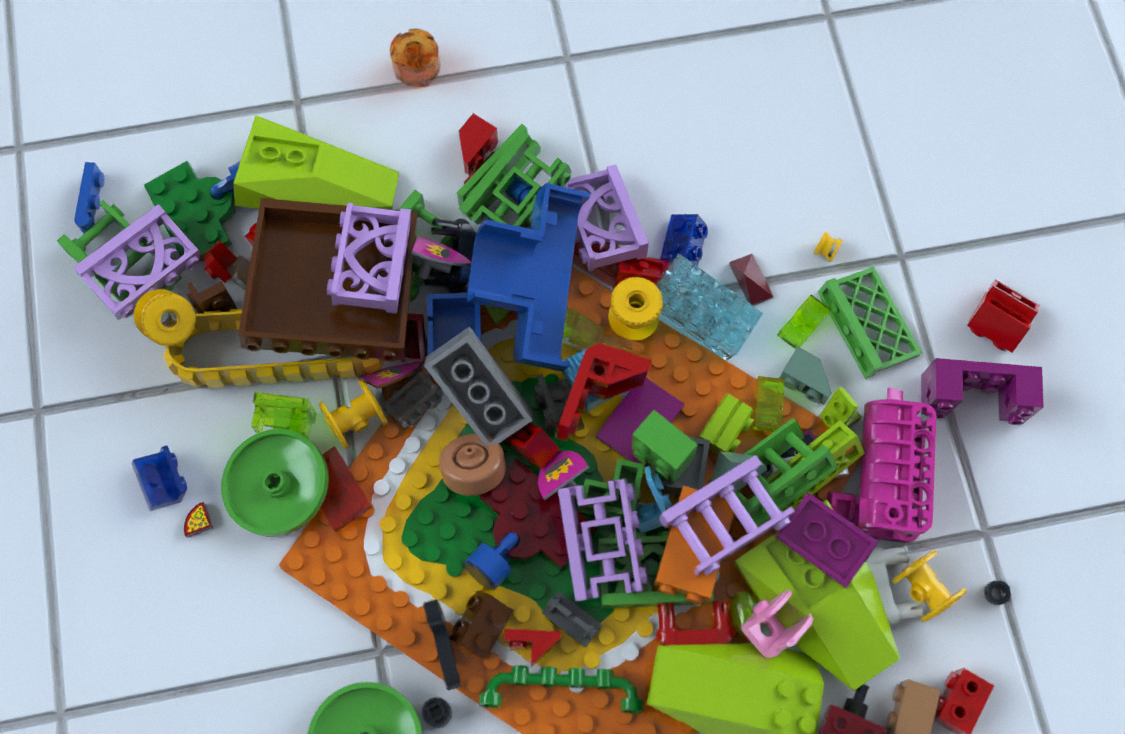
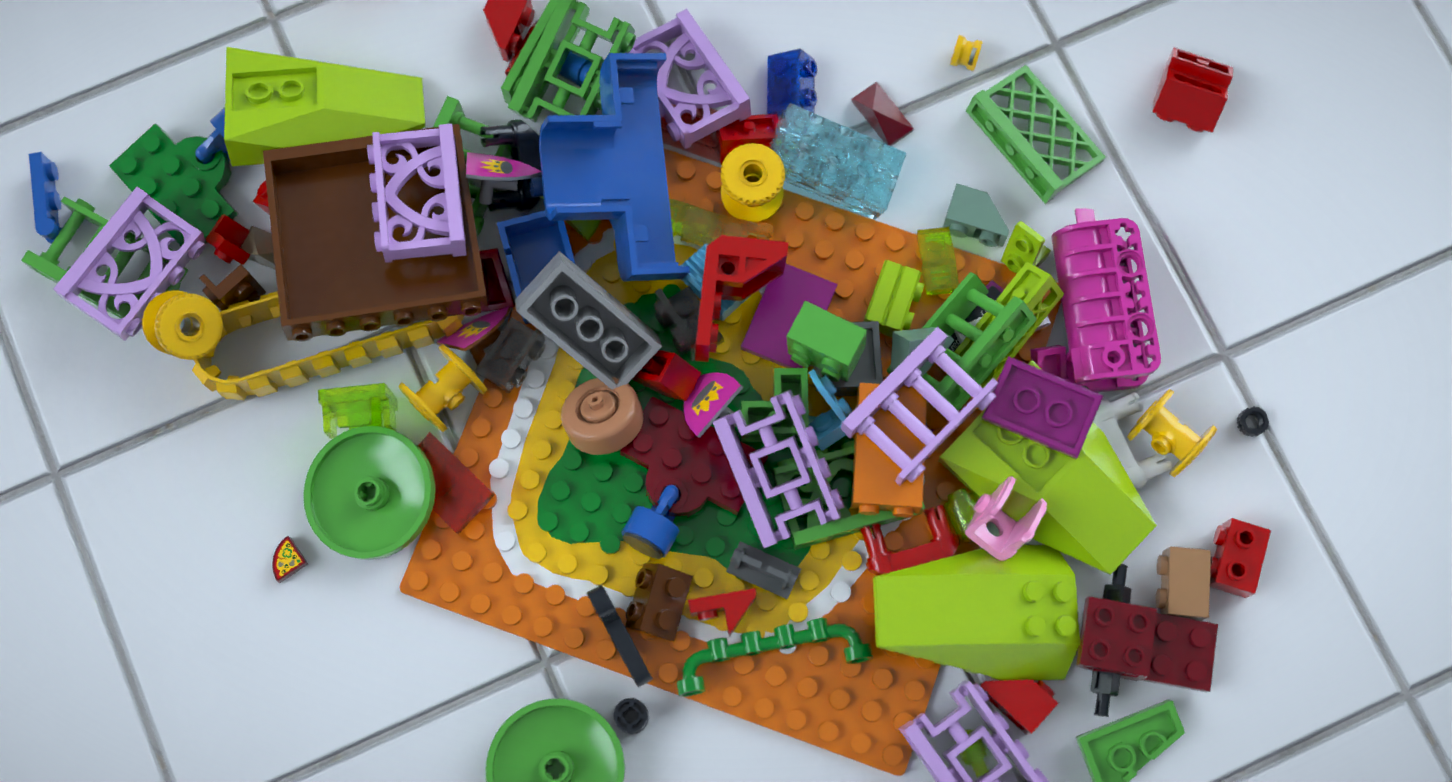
camera: 10 degrees left, 5 degrees up
(160, 479) = (228, 520): clear blue bracket -> none
(804, 322) = (957, 151): clear neon green slope -> none
(1017, 387) = (1226, 170): magenta plate -> none

